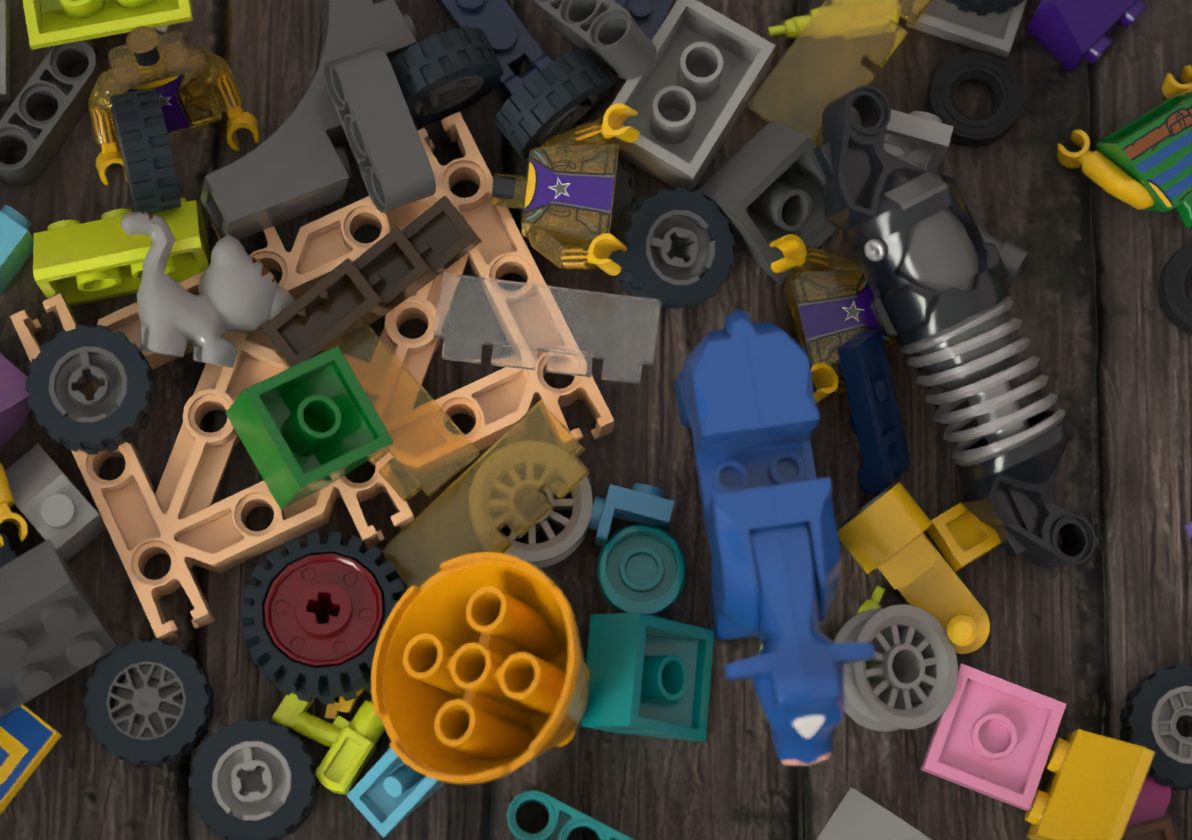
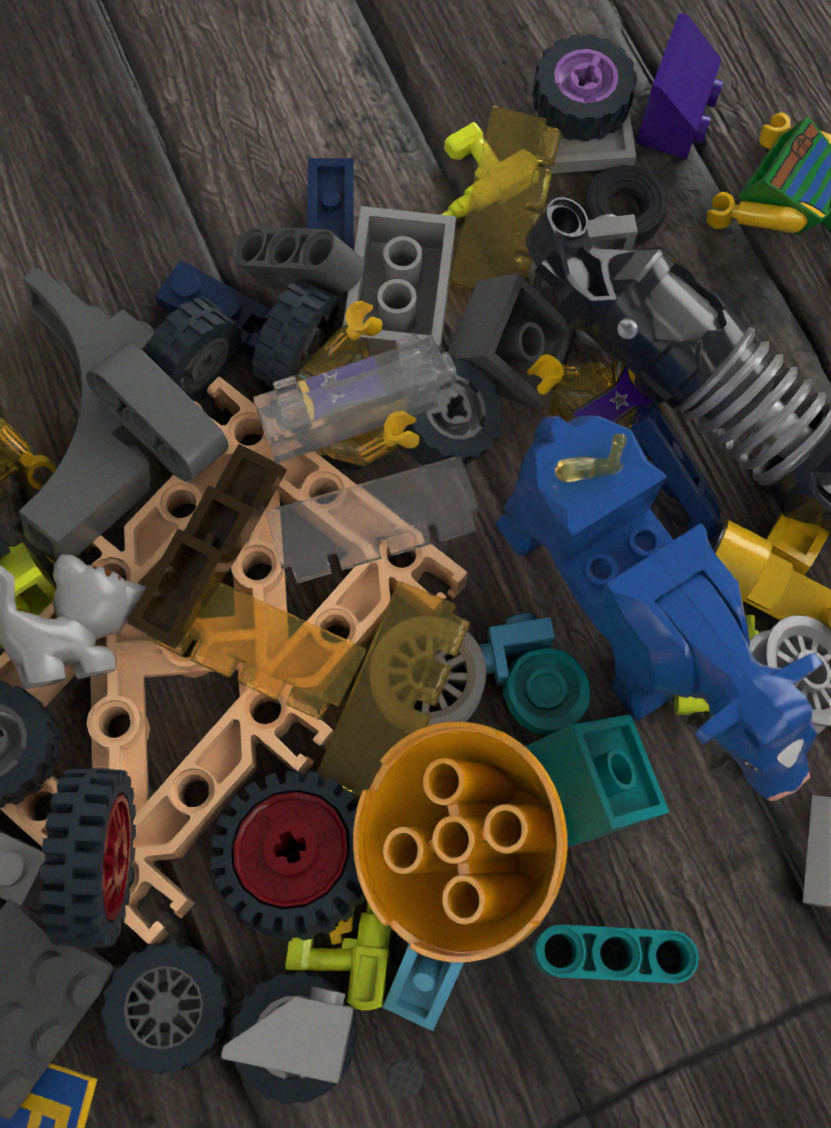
camera: 20 degrees left, 5 degrees down
(138, 533) = (88, 857): none -> black wheel
(257, 779) = (299, 1037): none -> light grey slope
(308, 426) = (205, 691): green slope -> none
(575, 202) = (354, 397): none -> clear brick
(750, 379) = (590, 467): none -> clear yellow piece

